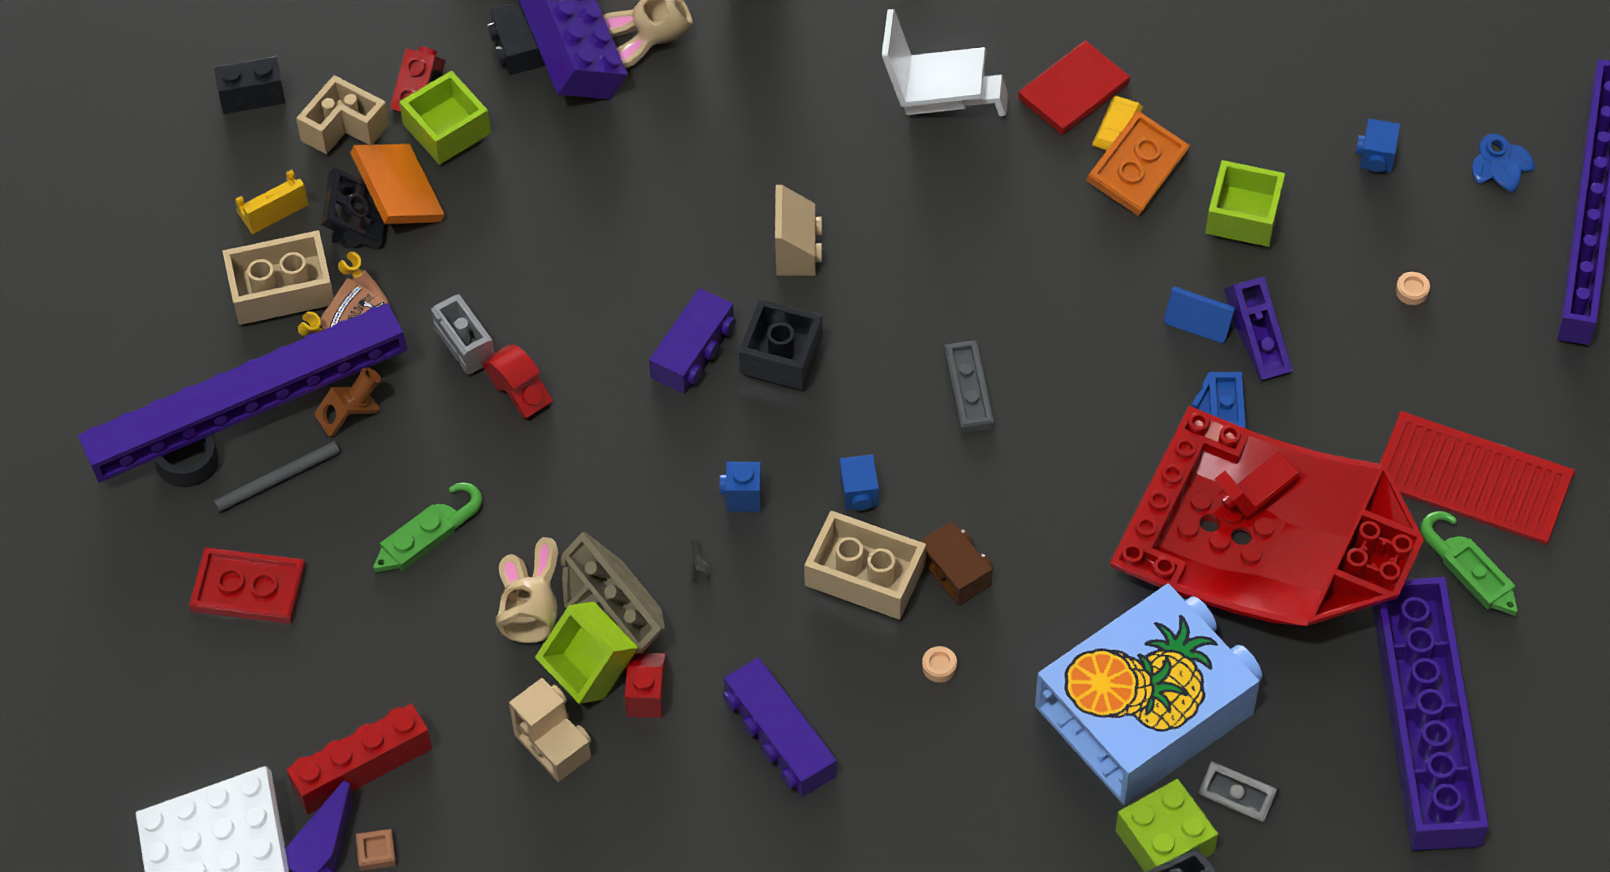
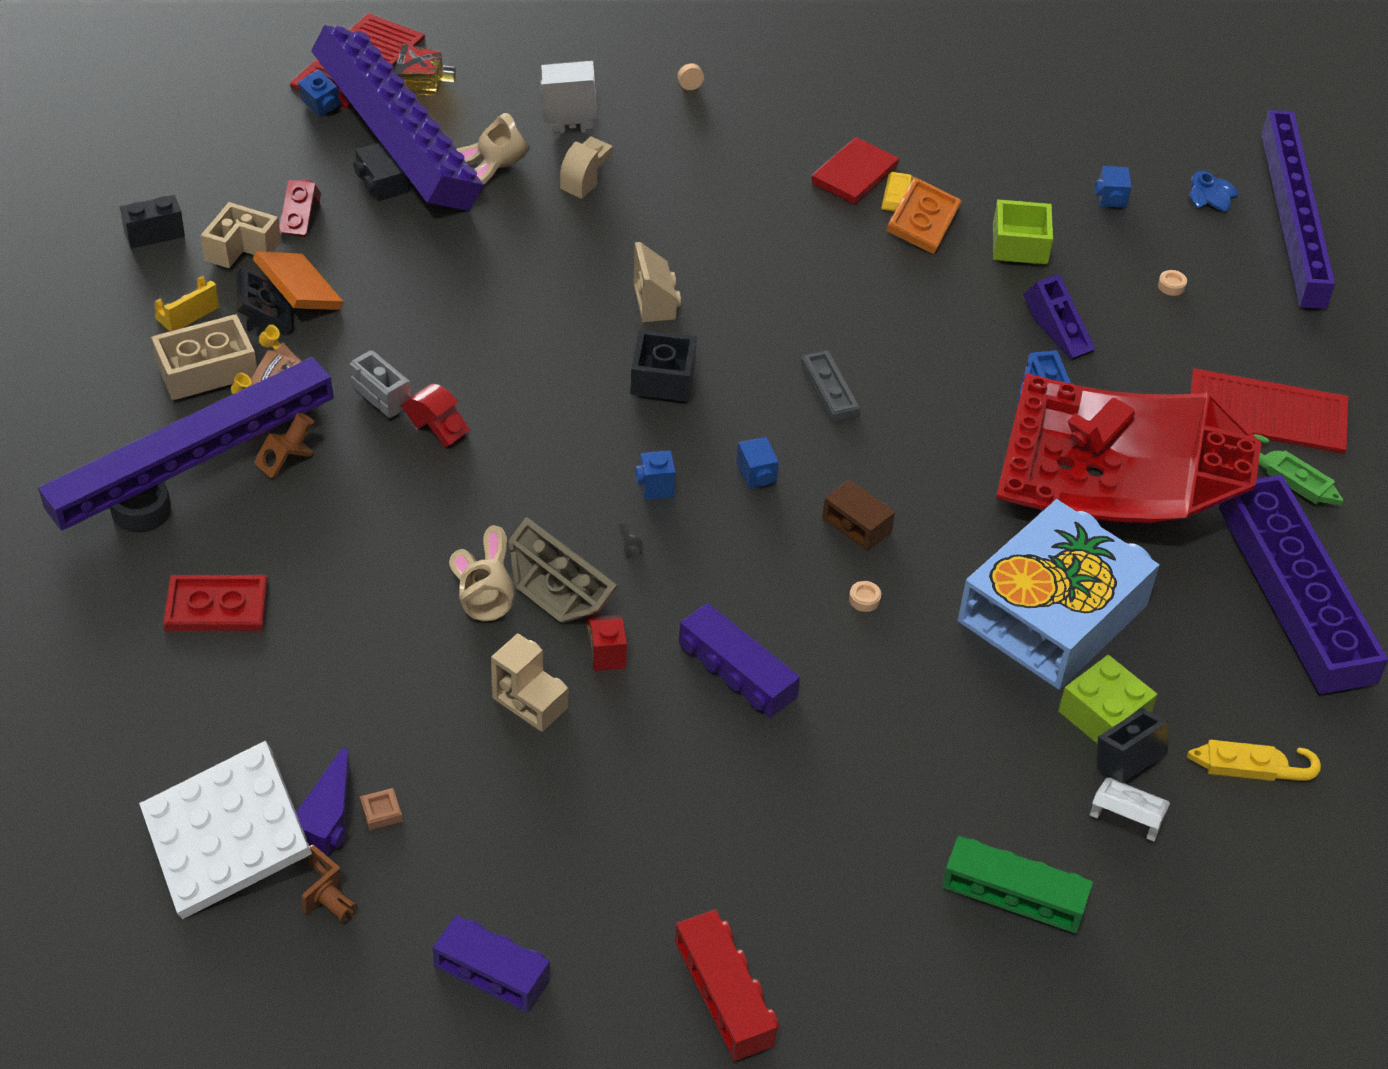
camera: 15 degrees left, 10 degrees down
(276, 476) = (227, 513): dark grey bar -> none
(359, 757) = (355, 726): red brick -> none
(426, 531) = (375, 542): bright green plate -> none
(445, 117) = (331, 228): lime piece -> none
(586, 652) = (550, 614): lime piece -> none
(692, 341) = (584, 372): dark purple brick -> none
(746, 55) = (581, 164): none -> tan brick
(865, 564) = (781, 522): tan brick -> none
(939, 79) = (750, 167): white piece -> none
(1199, 315) = (1008, 314): blue slope -> none
(1238, 790) = (1157, 664): dark grey slope -> none

